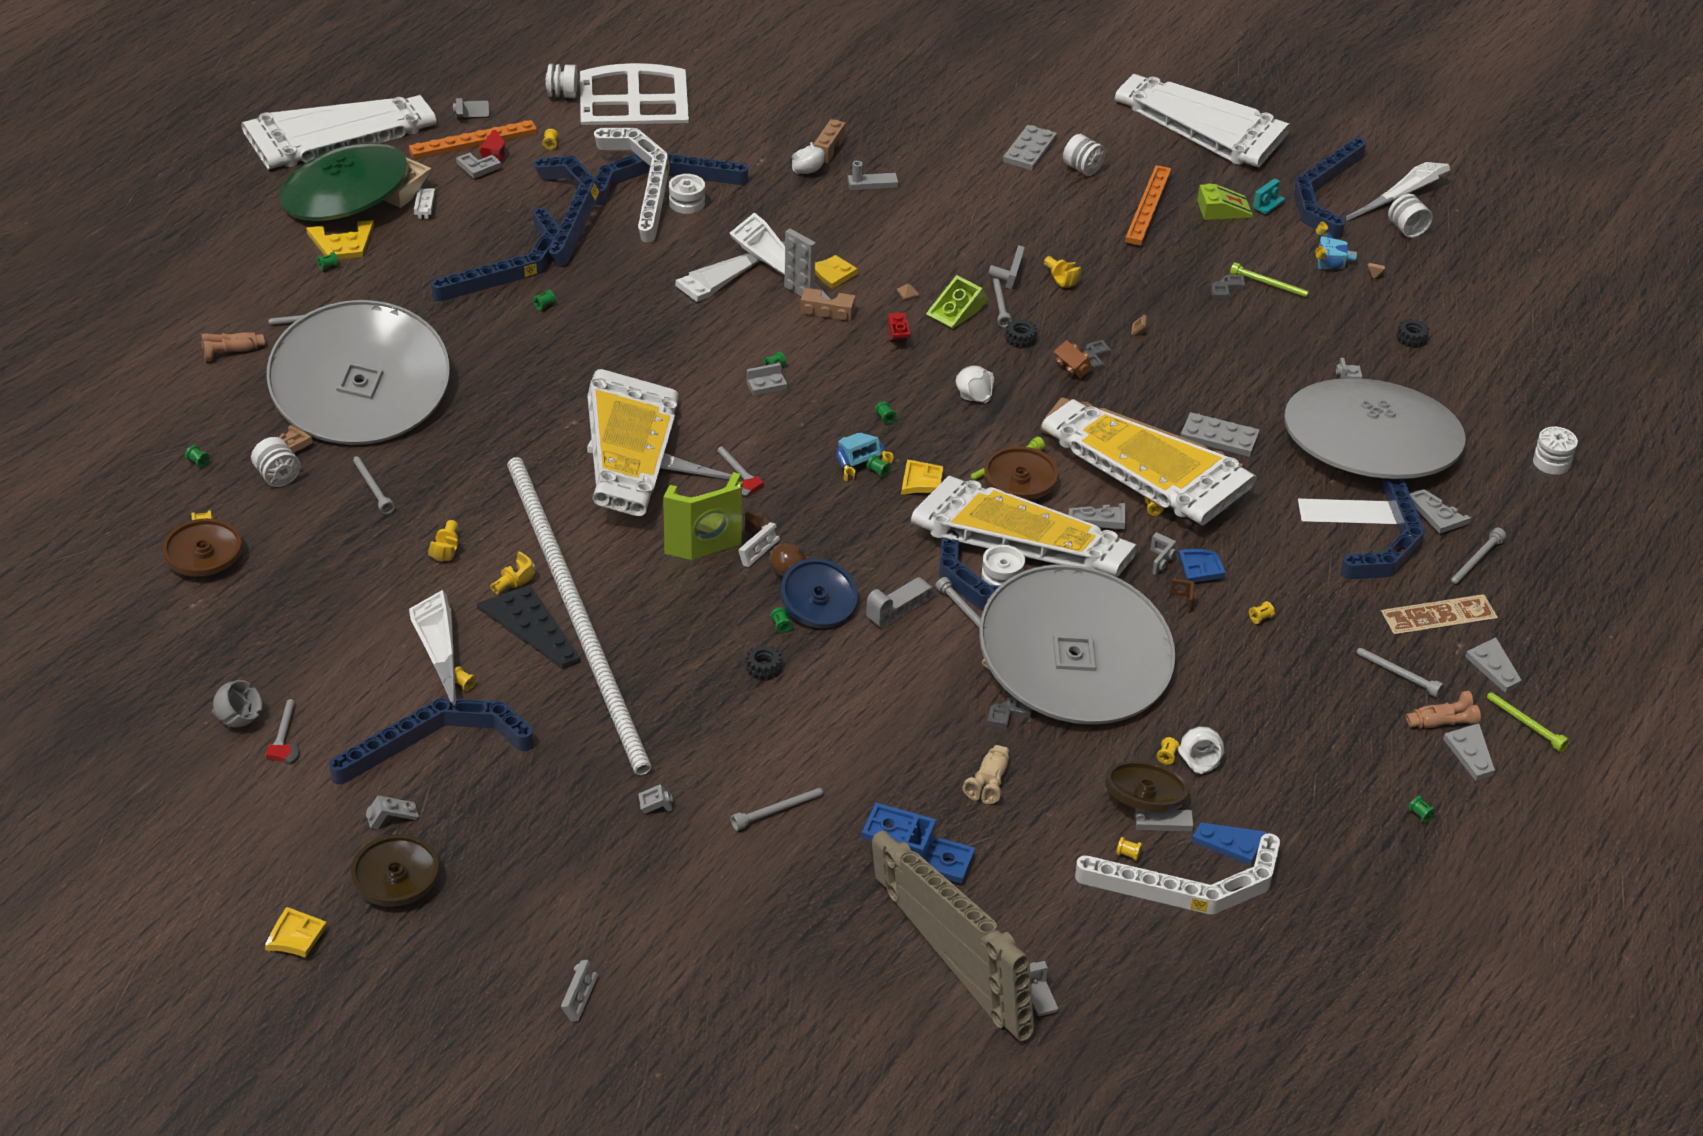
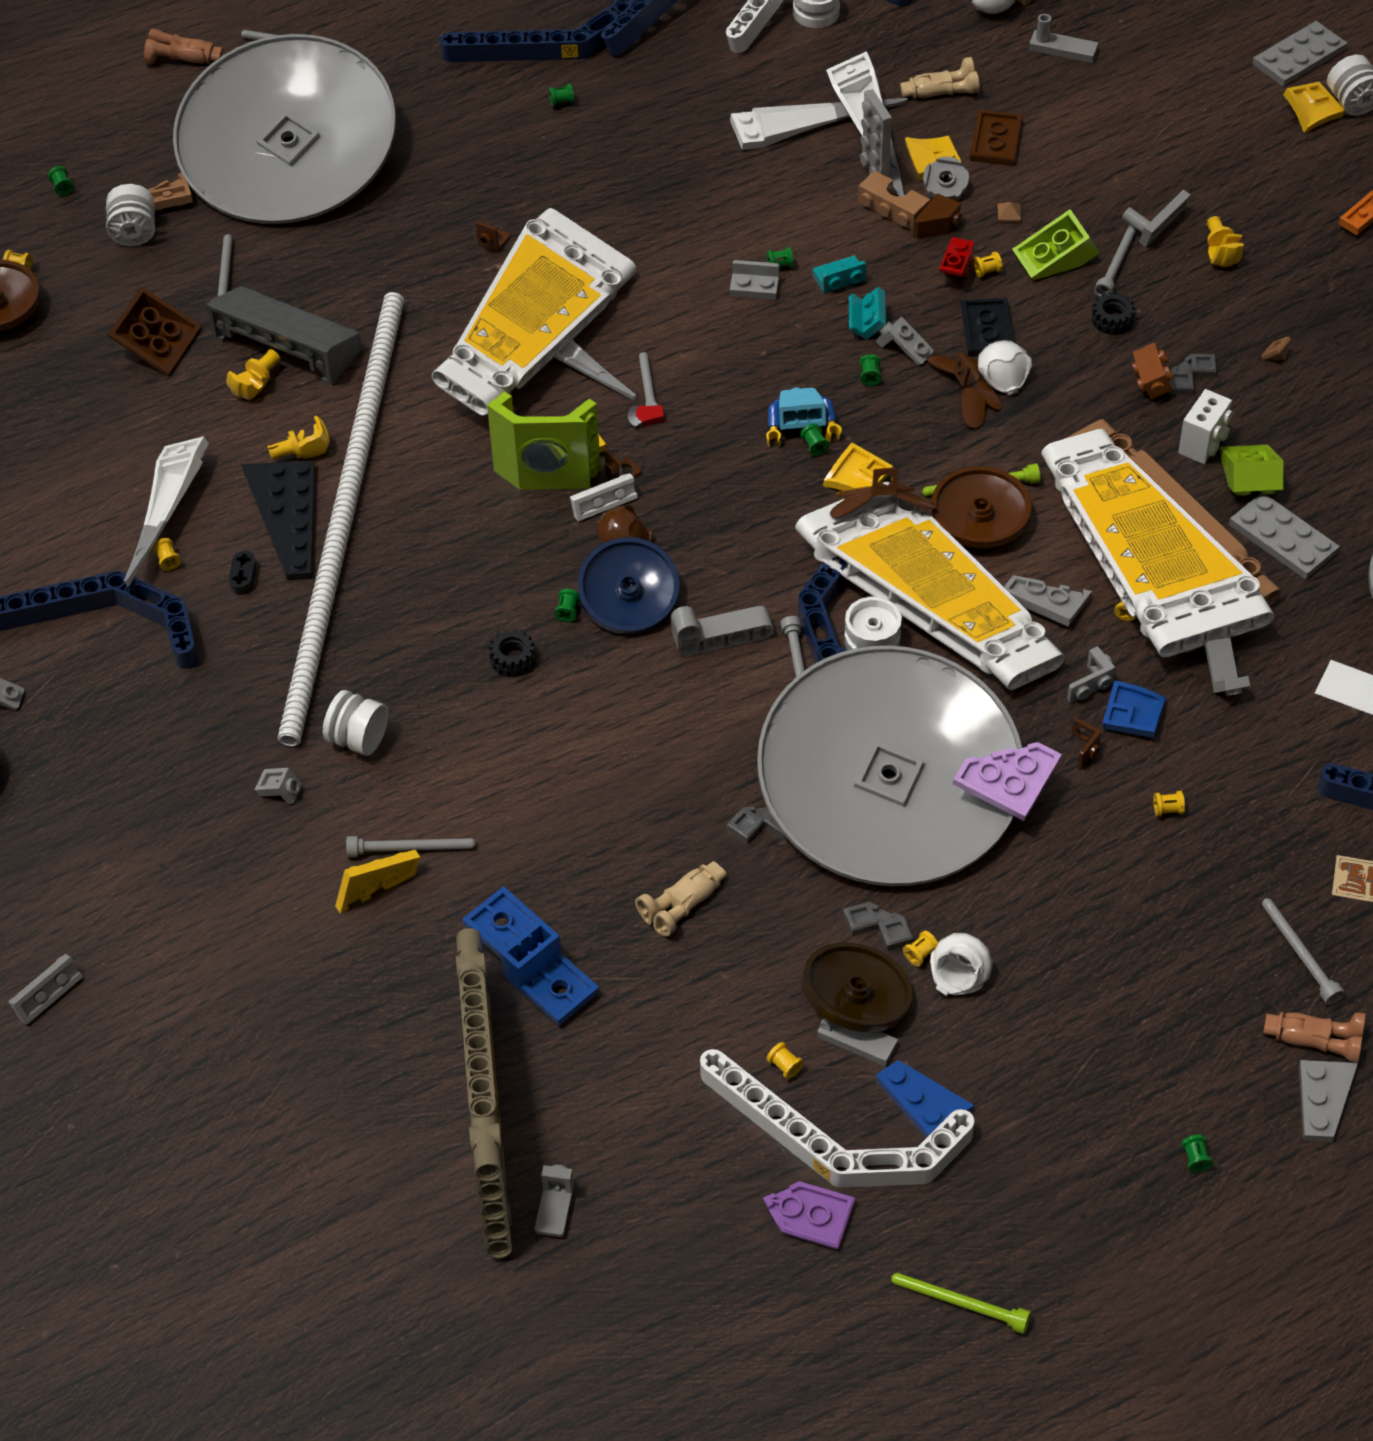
camera: 30 degrees right, 10 degrees up
(347, 533) = (154, 330): none -> reddish brown slope
(450, 503) = (287, 328): none -> dark grey windscreen
(532, 673) = (247, 573): none -> black beam
(557, 403) = (488, 237): none -> reddish brown bracket
(688, 739) = (355, 722): none -> white wheel
(770, 832) = (363, 880): none -> yellow wing
(809, 223) = (944, 82): none -> tan piece
(821, 360) = (840, 273): none -> teal bracket
(858, 289) = (950, 167): none -> light grey plate
(860, 378) = (867, 314): none -> teal bracket
(865, 306) = (937, 217): none -> reddish brown slope
(867, 248) = (996, 137): none -> reddish brown tile
(898, 385) = (907, 339): none -> light grey bracket
(918, 326) = (987, 264): none -> yellow bush
(940, 364) = (985, 323): none -> black tile
(945, 487) = (860, 496): none -> reddish brown piece
(965, 406) = (975, 392): none -> reddish brown piece
(1061, 175) = (1313, 105): none -> yellow plate
(1132, 382) = (1205, 426): none -> white piece
(1138, 746) = (869, 917): none -> flat silver tile
(1160, 625) = (1009, 777): none -> lavender plate
(1177, 399) = (1252, 469): none -> lime slope
(1209, 934) = (811, 1213): none -> medium lavender tile
(1240, 521) = (1223, 667): none -> light grey bracket
(1381, 947) = (1016, 1319): none -> lime piece

